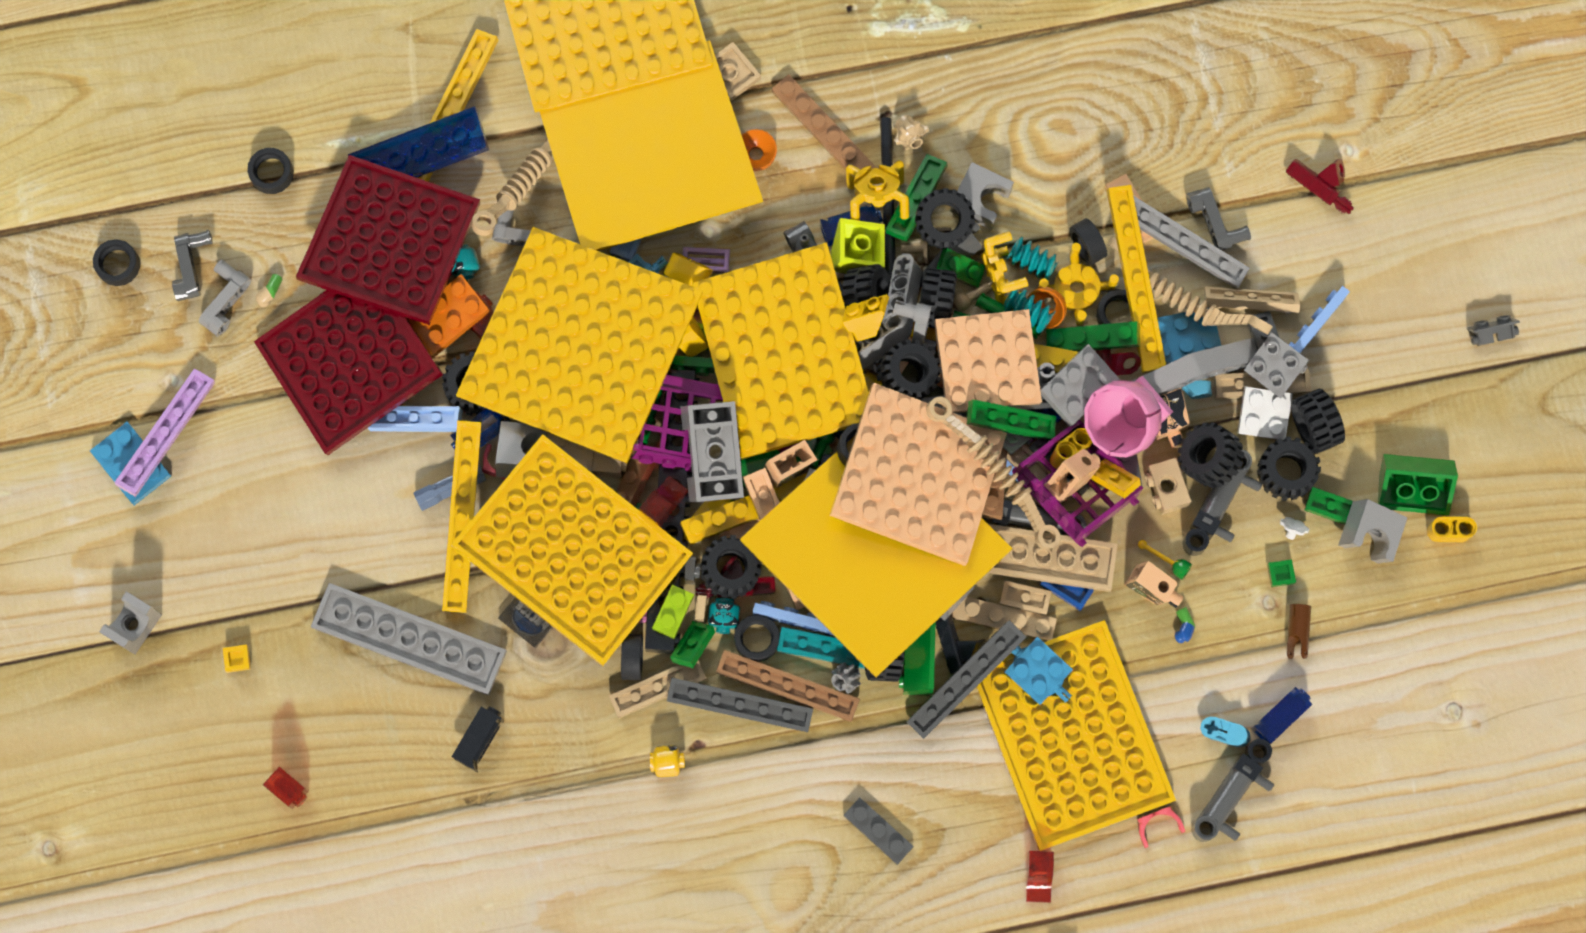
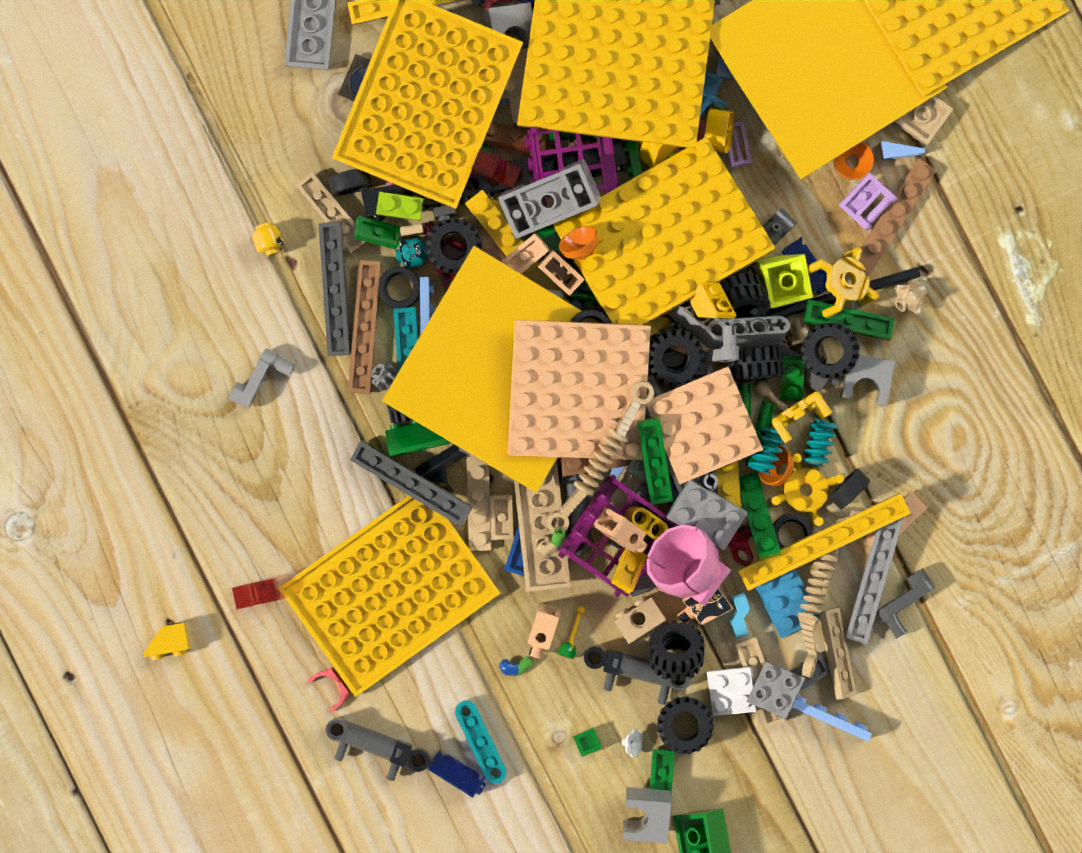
camera: 80 degrees right, 10 degrees up
(478, 737) = (243, 68): black window -> none
(757, 109) = (894, 151): none -> light blue piece
(763, 431) = (579, 243): none -> orange piece
(796, 151) = (862, 196): none -> lavender plate
(825, 830) = (246, 395): none -> light grey beam
(878, 831) = (258, 442): dark grey plate -> none
(1039, 671) = (436, 546): dark azure plate -> none
(1069, 545) = (553, 545): none -> arm
(1201, 366) = (756, 620): light grey beam -> none
(1214, 729) = (429, 715): medium azure piece -> none
(1254, 683) = (480, 742): none -> teal plate
(1299, 629) = (539, 770): reddish brown piece -> none
(1318, 420) = (735, 741): black tyre -> none
(1323, 183) = (969, 693): dark red piece -> none

